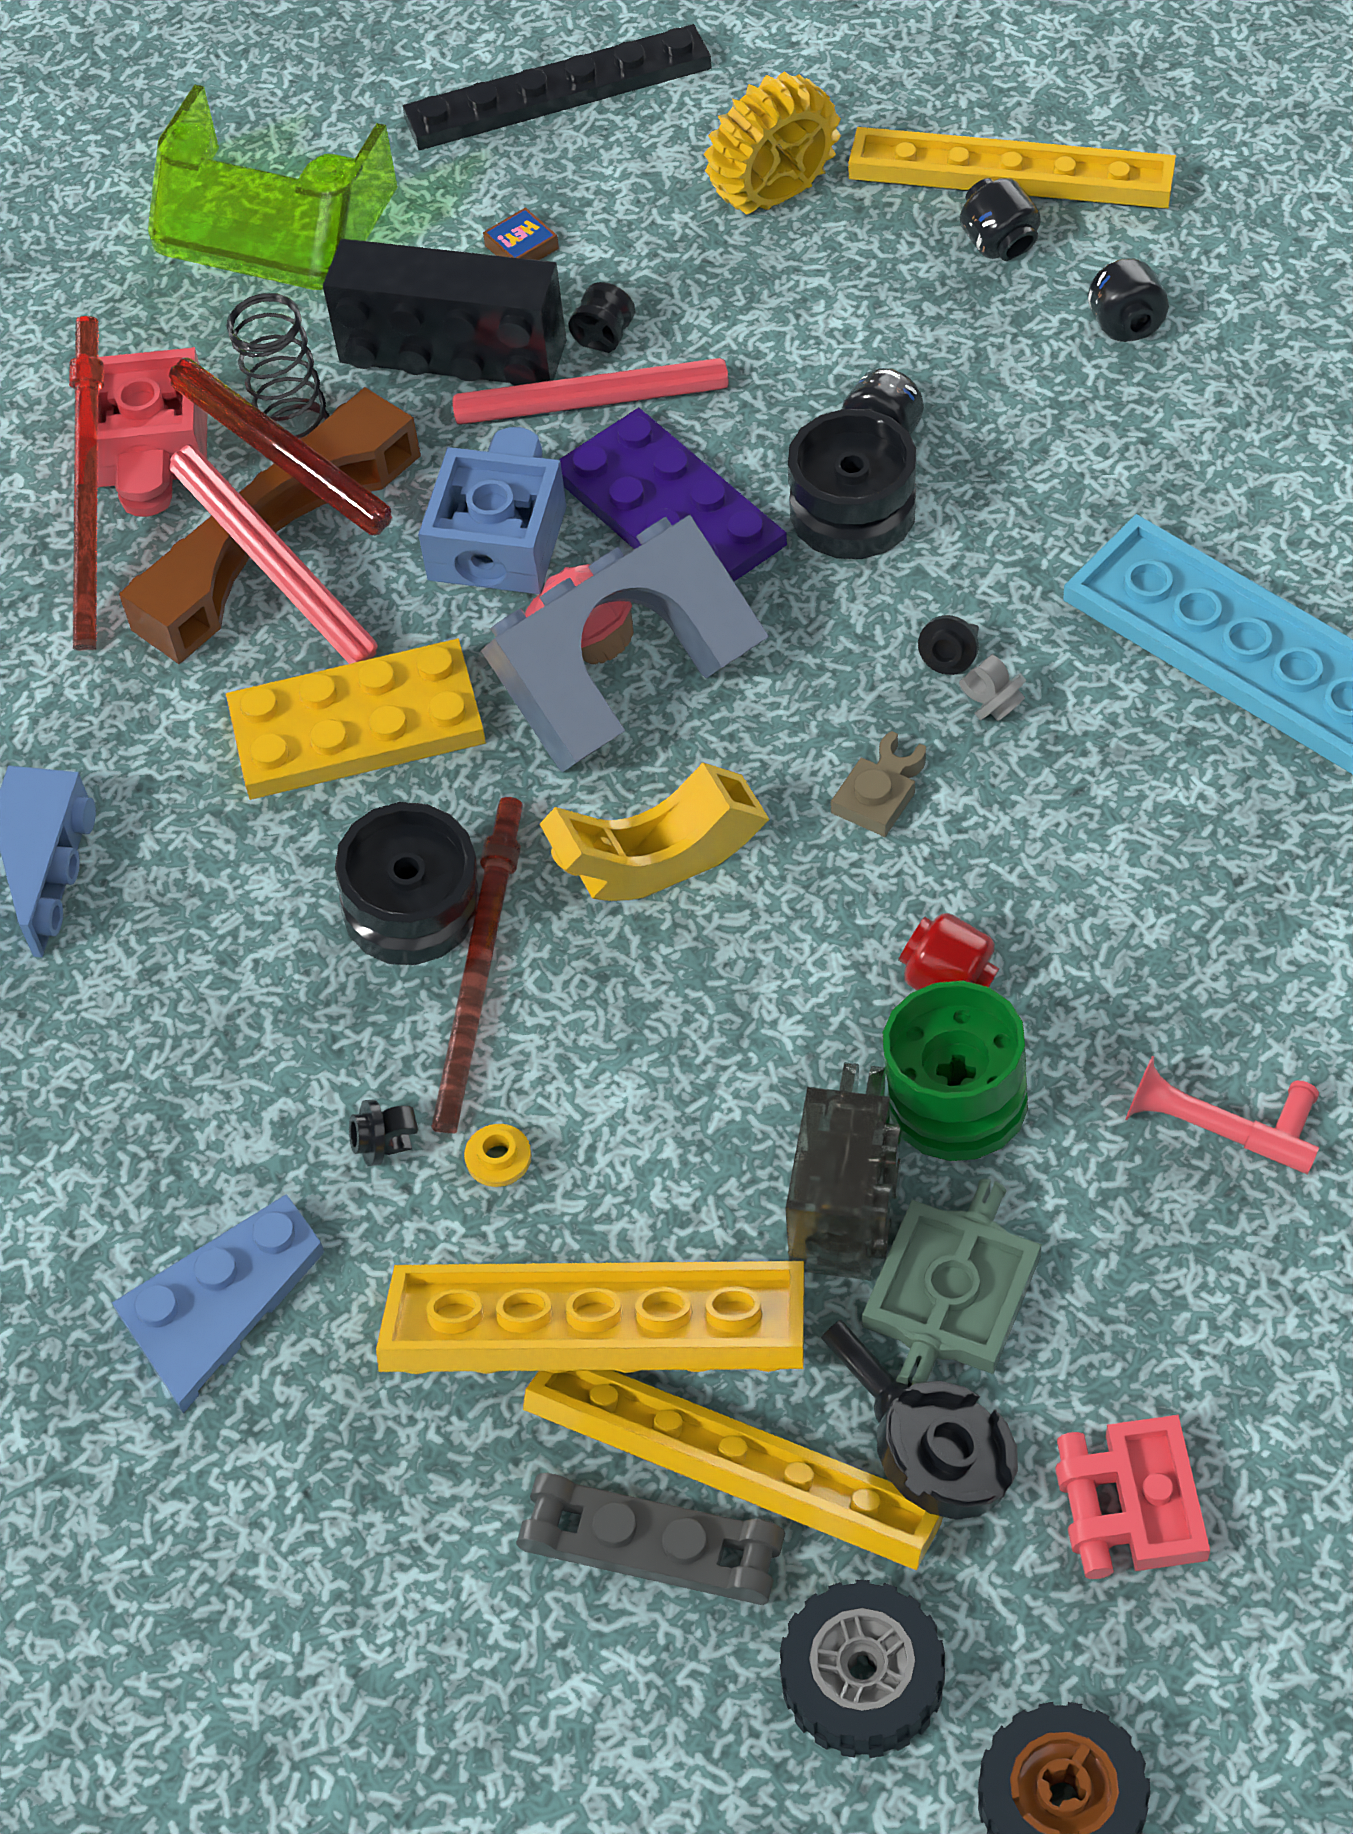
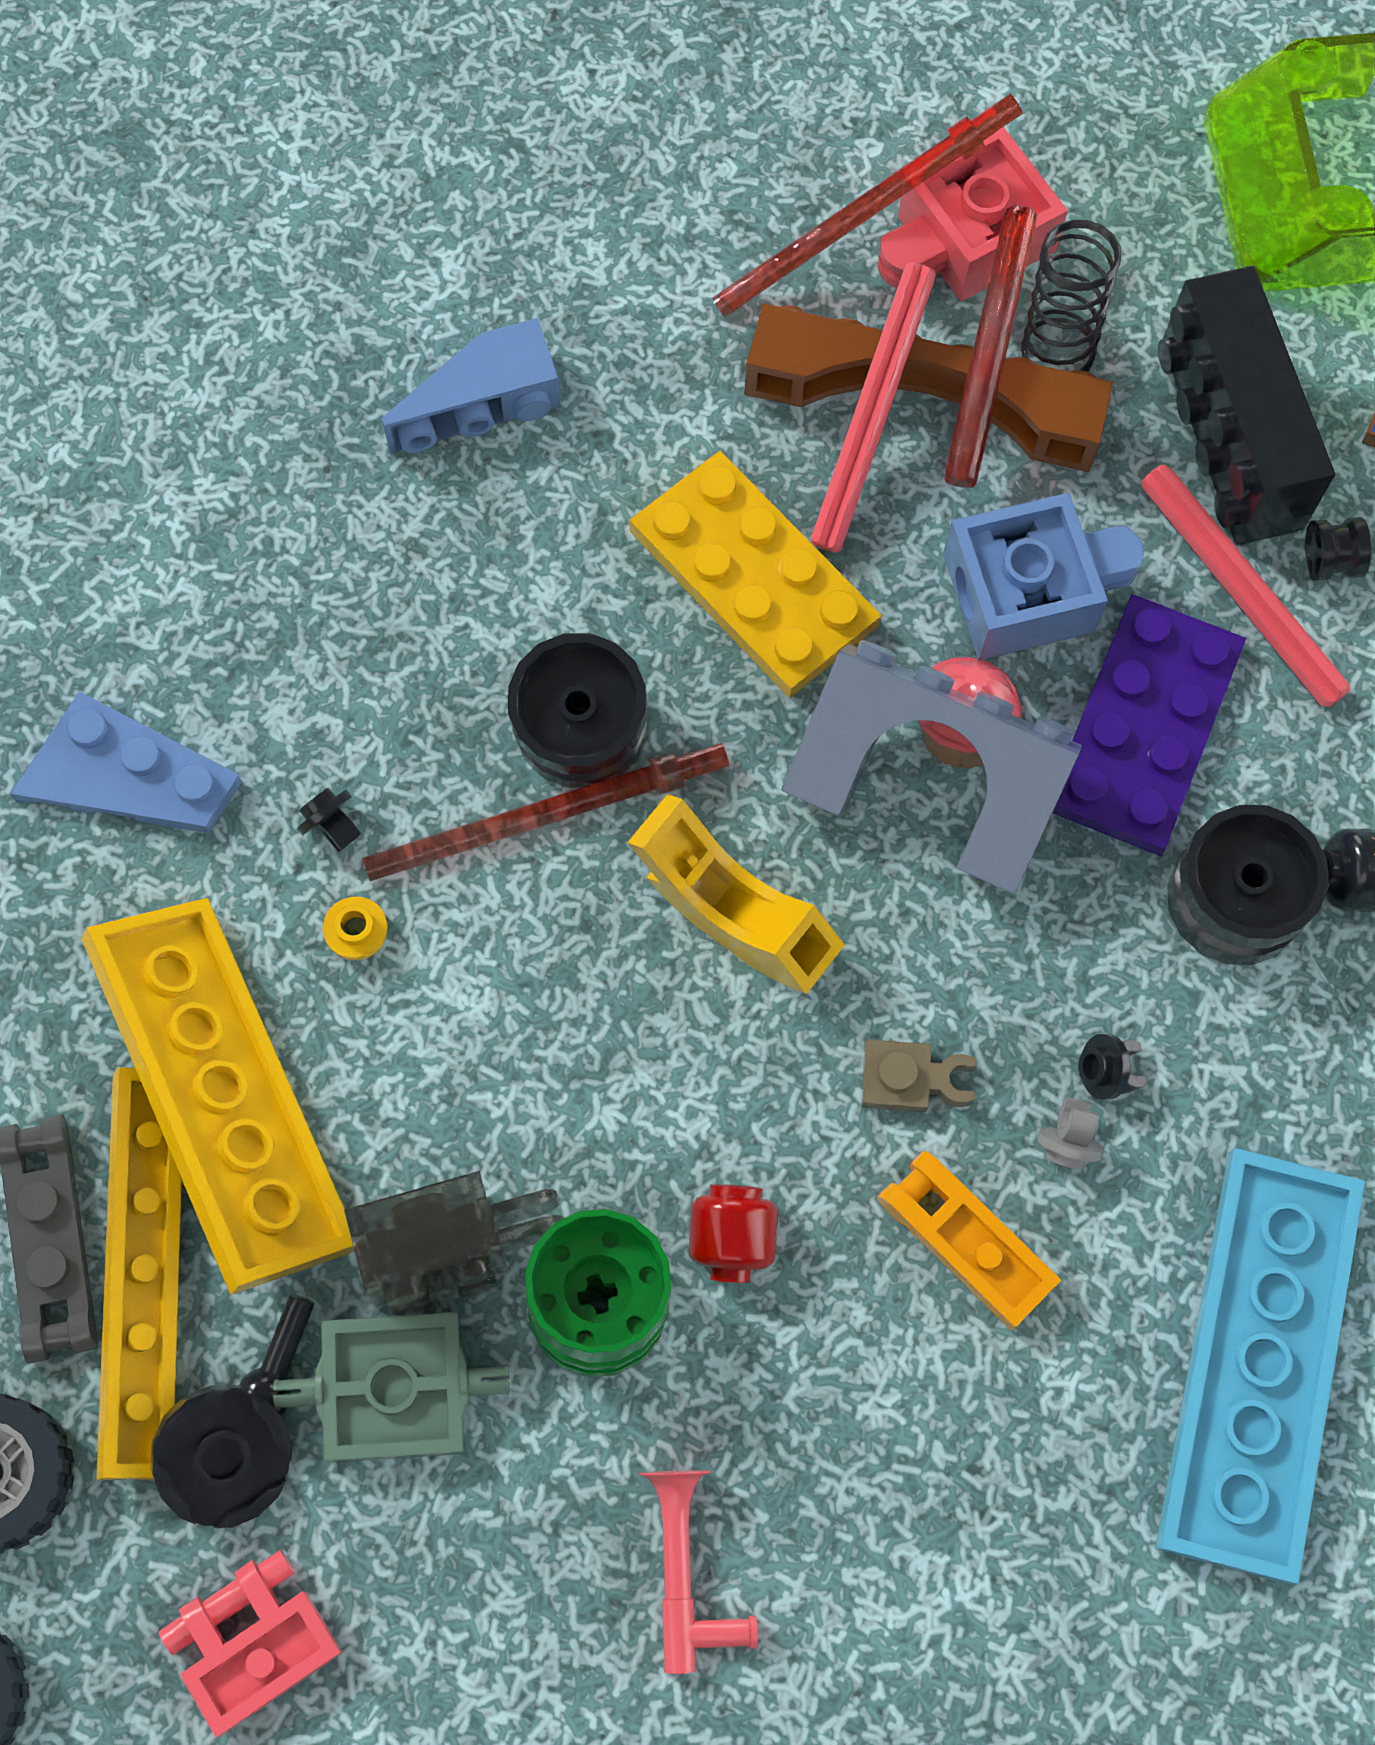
camera: 55 degrees right, 15 degrees up
(1043, 798) = (970, 1241): none -> light orange plate

